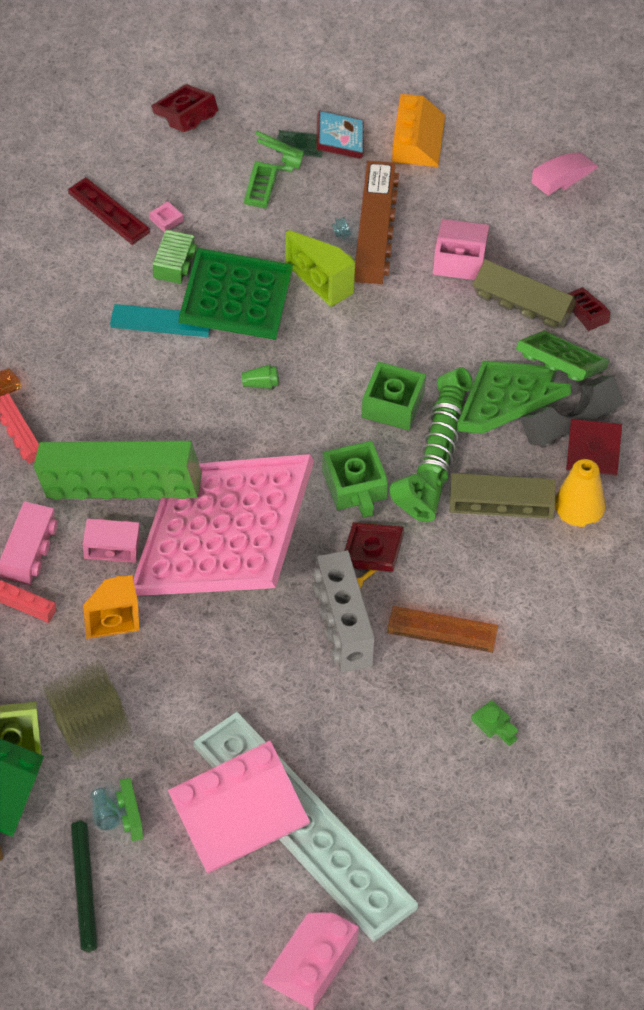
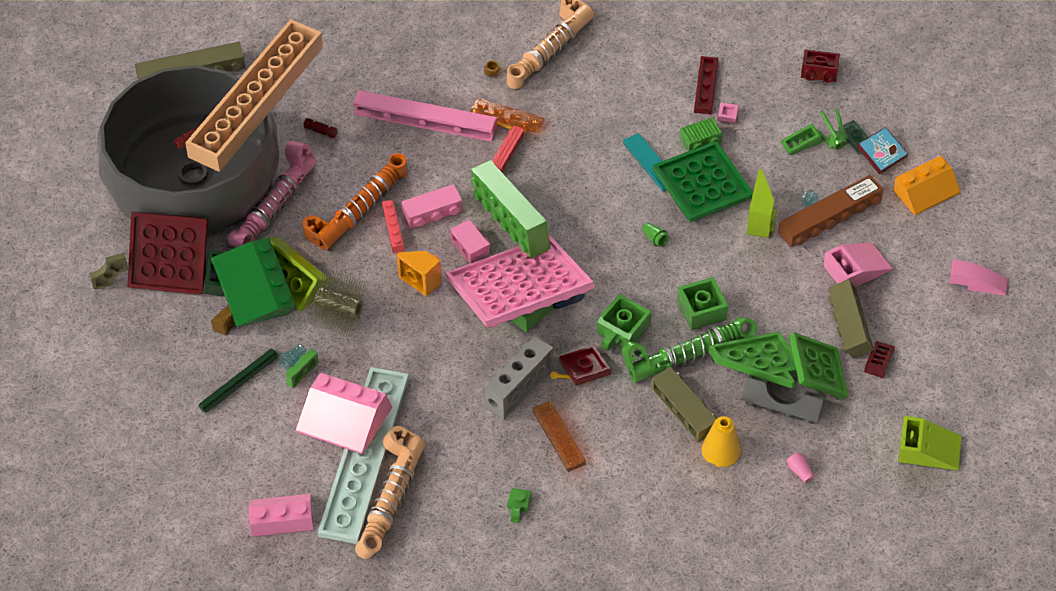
camera: 55 degrees right, 0 degrees up
(337, 775) = (400, 476): none -> light nougat piece
(595, 442) = (767, 427): dark red plate -> none

